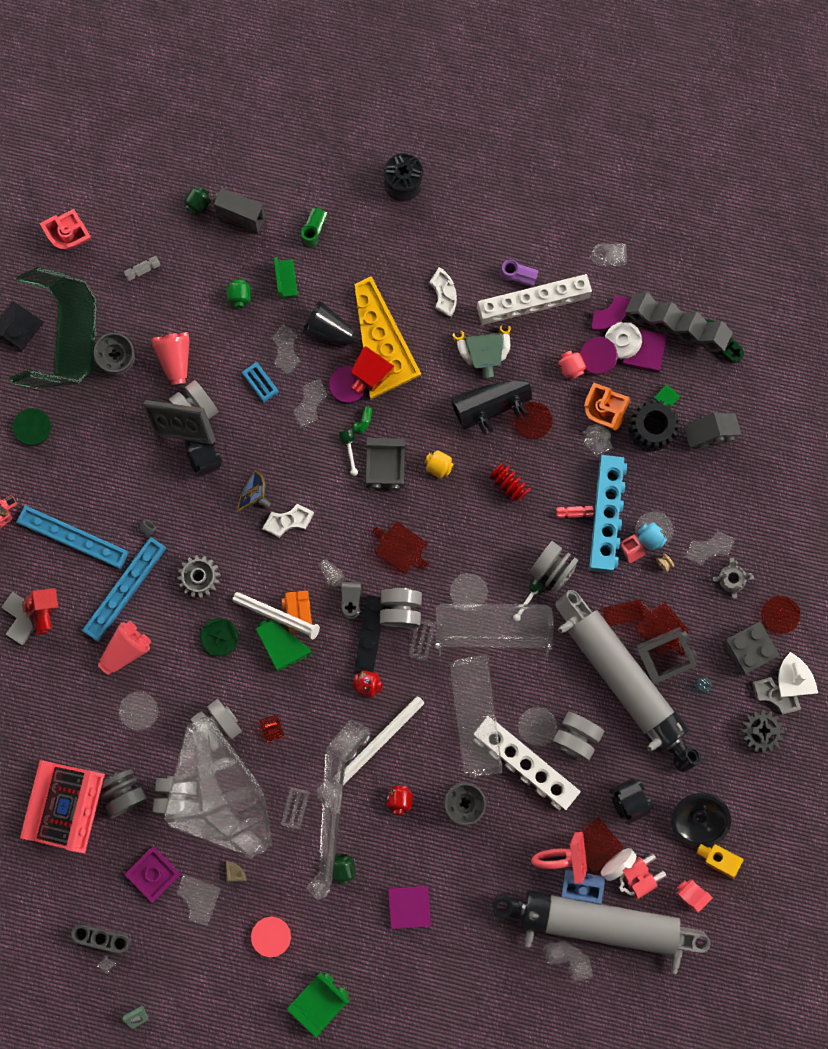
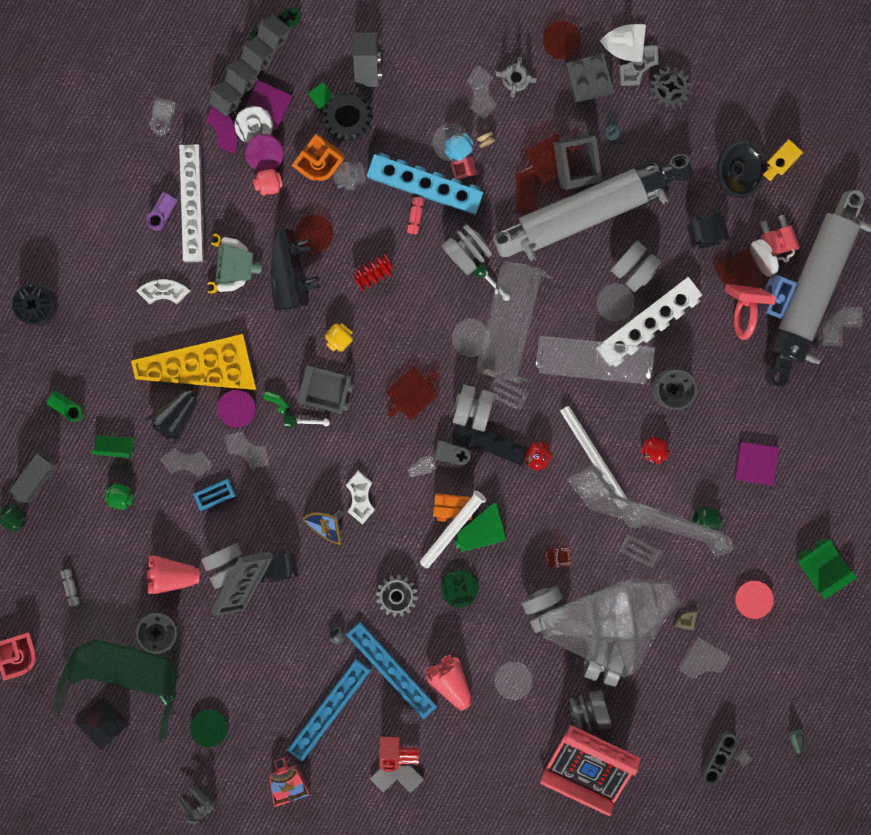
camera: 75 degrees left, 10 degrees up
(152, 874) = (670, 698): magenta tile -> none
(370, 371) = (230, 384): red torso -> none
(693, 895) = (809, 194): coral arch -> none

